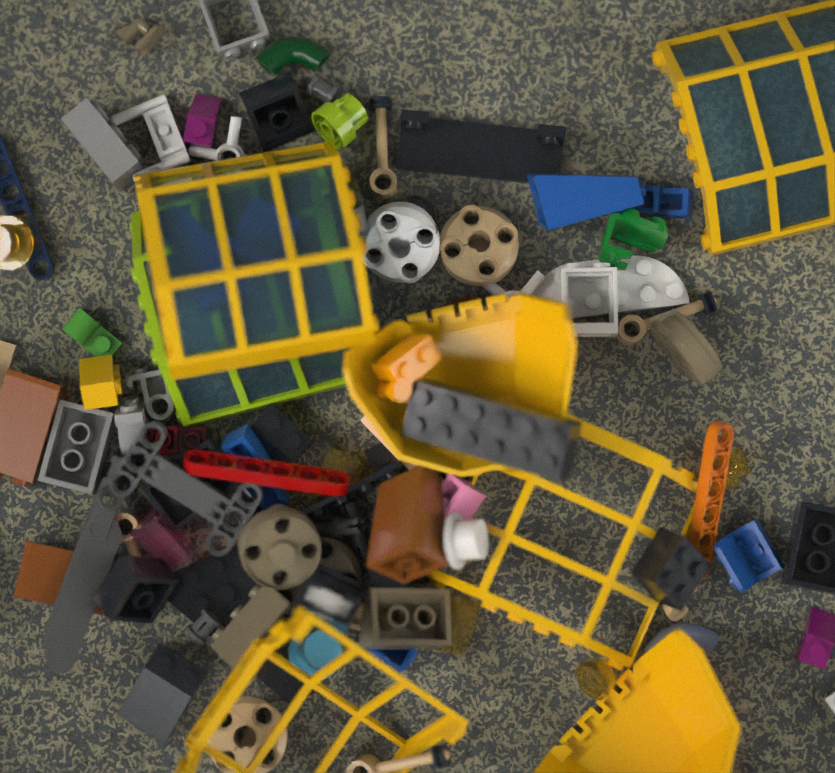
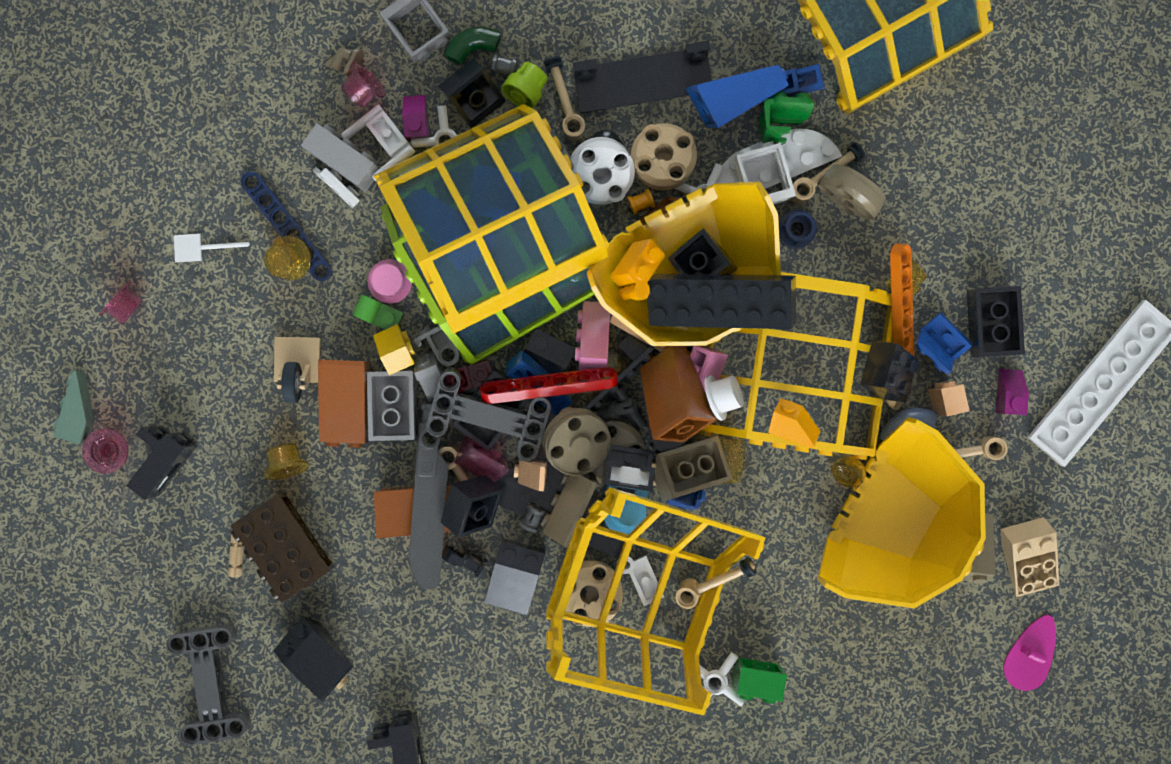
camera: 25 degrees left, 5 degrees up
(86, 168) = (333, 180): none -> white hinge
(113, 658) = (469, 561): none -> black connector
(116, 302) = (388, 281): none -> bright pink piece
(151, 69) = (362, 86): none -> clear pink piece
(218, 571) = (531, 473): none -> light nougat slope
(314, 736) = (643, 578): none -> white hinge
(334, 432) = (593, 336): none -> bright pink brick
(438, 291) = (641, 201): none -> light orange bush
(487, 373) = (702, 257): none -> black slope
(537, 596) = (794, 424): none -> light orange slope
(615, 359) = (806, 223): none -> dark blue piece
(737, 622) = (948, 398): none -> light nougat brick
(761, 697) = (983, 449): none -> tan piece

